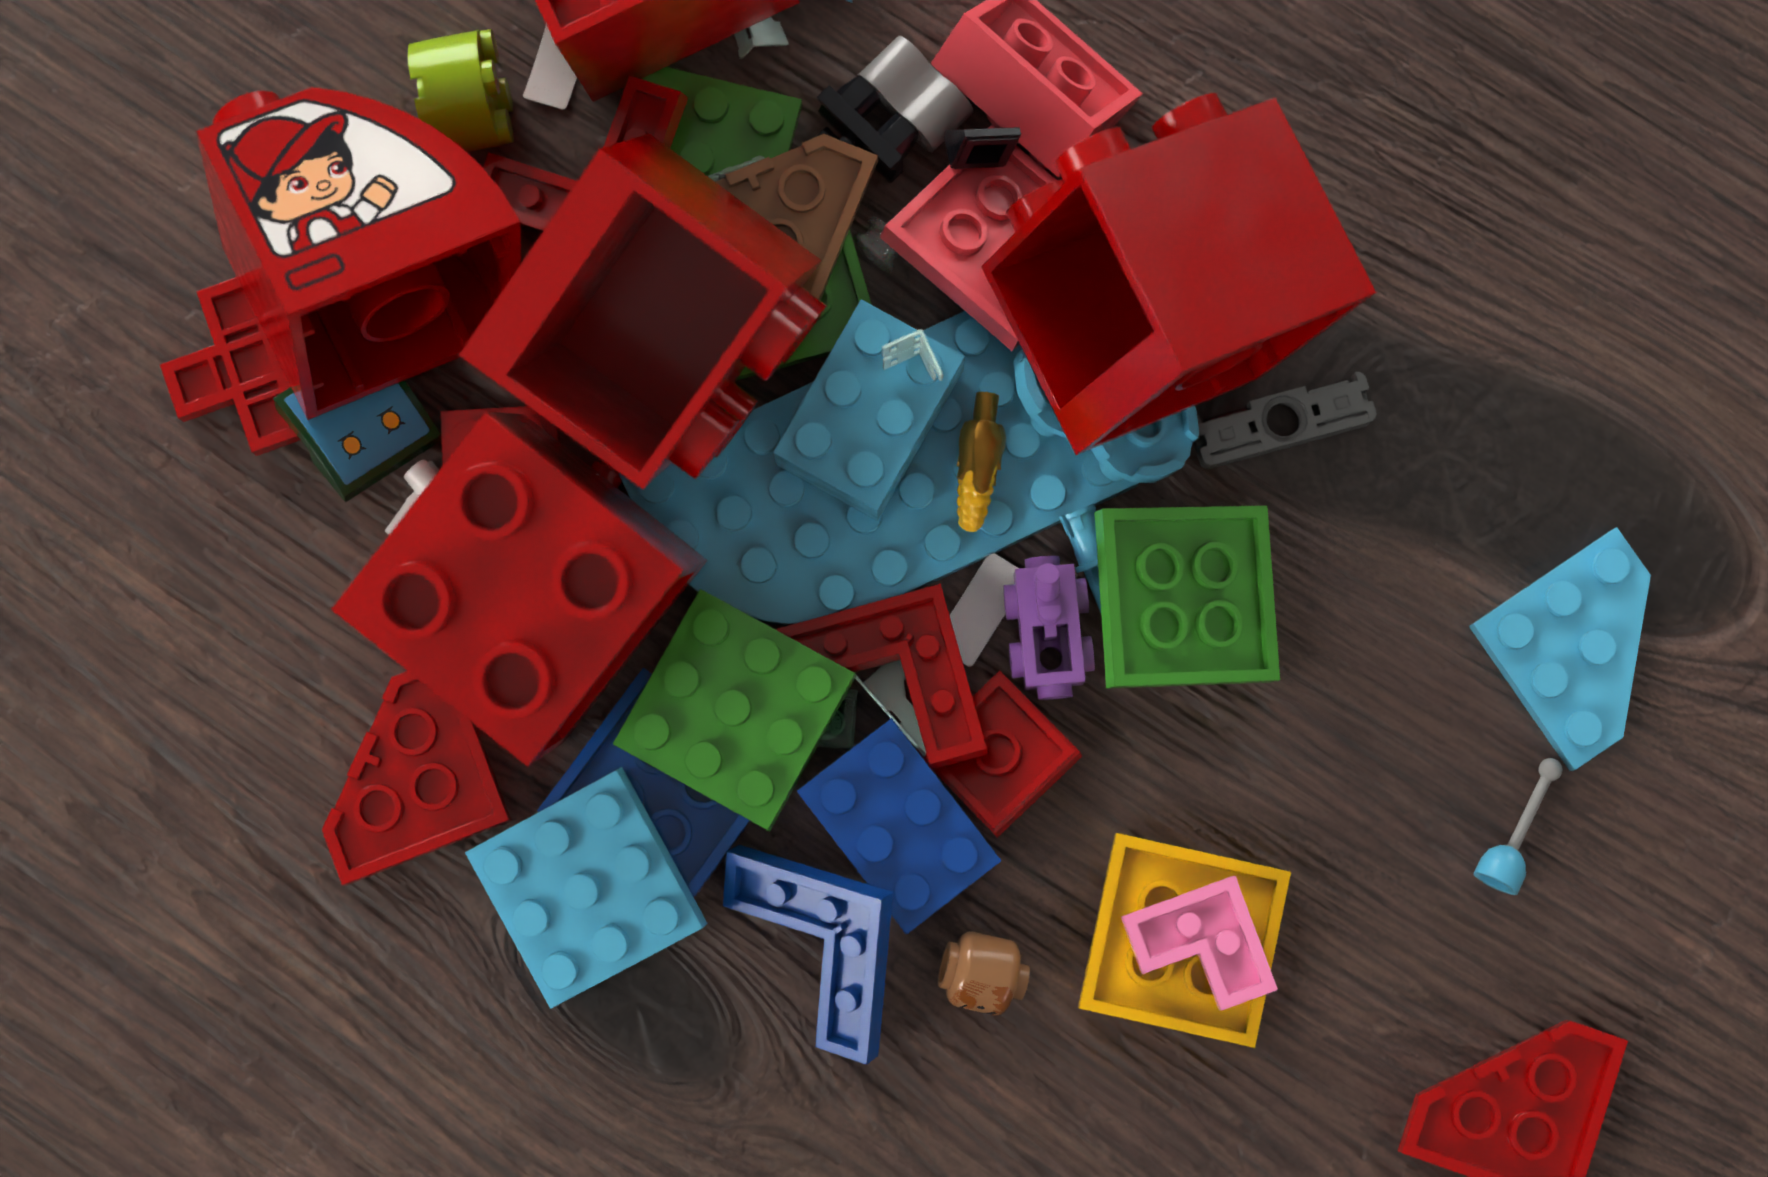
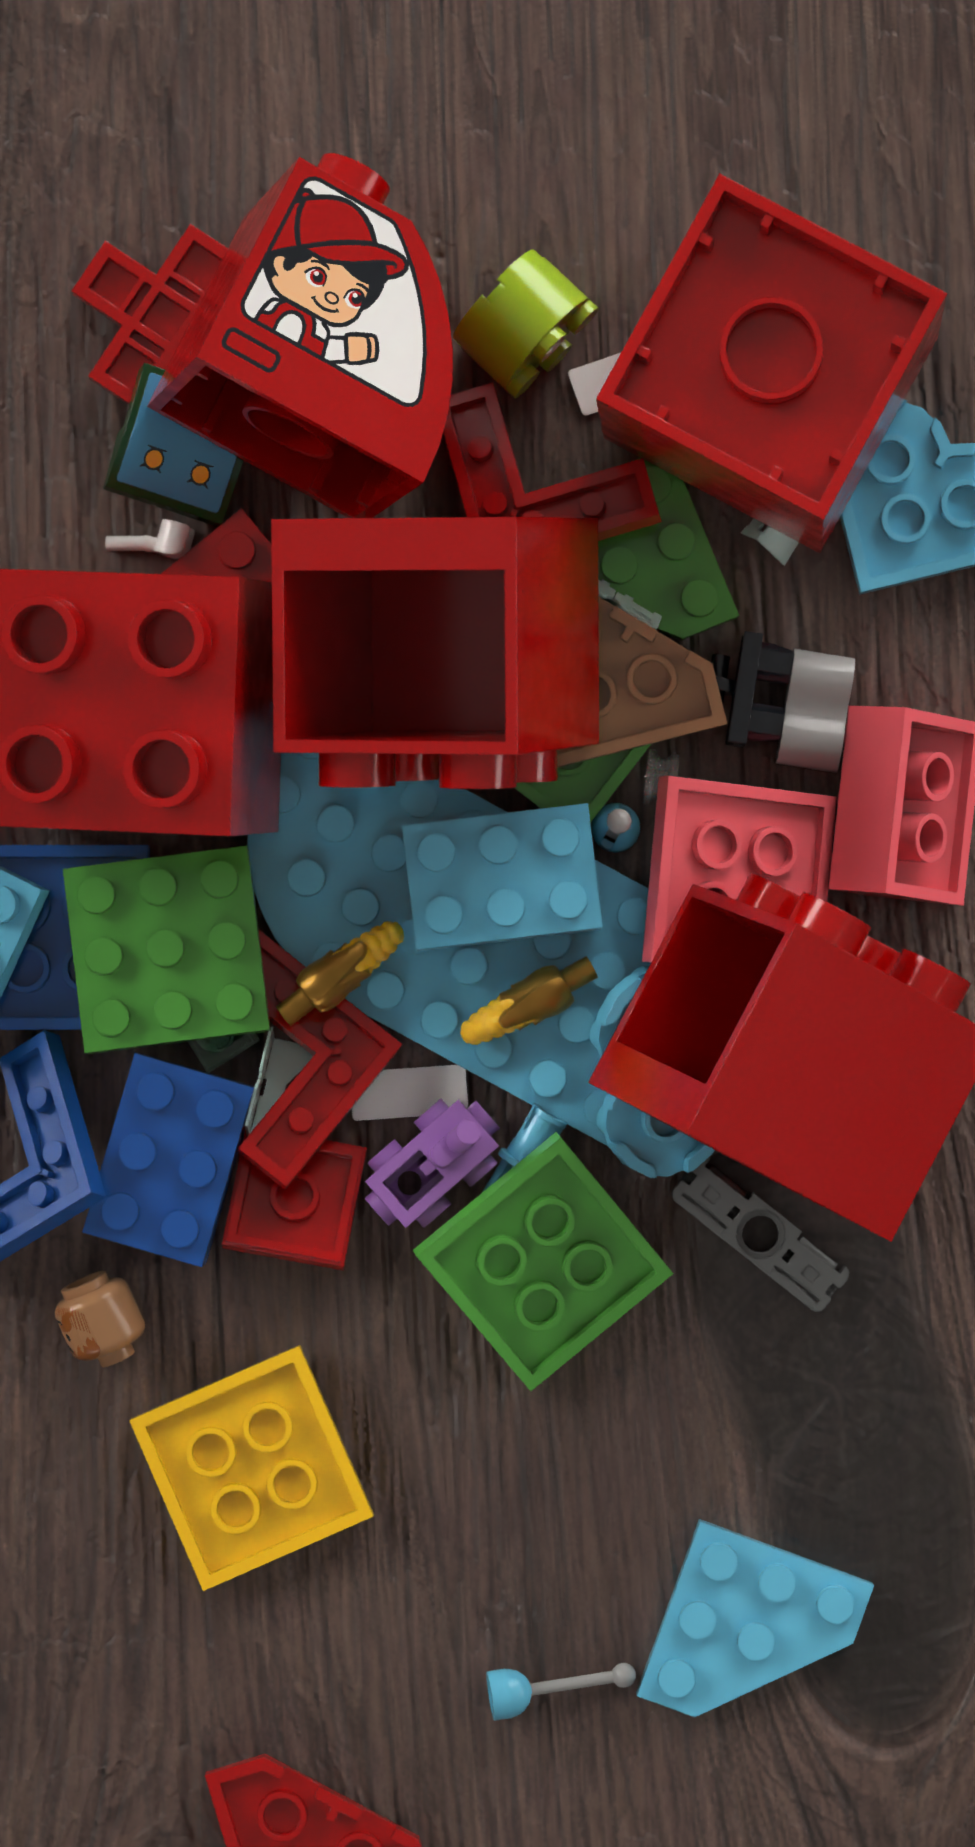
camera: 55 degrees right, 5 degrees up
(850, 588) = (340, 972): none -> pearl gold piece
(895, 297) = (618, 823): none -> medium azure hinge
(905, 350) = (564, 878): light aqua piece -> none
(980, 147) = (805, 802): black slope -> none
(1214, 926) = (276, 1483): bright pink plate -> none

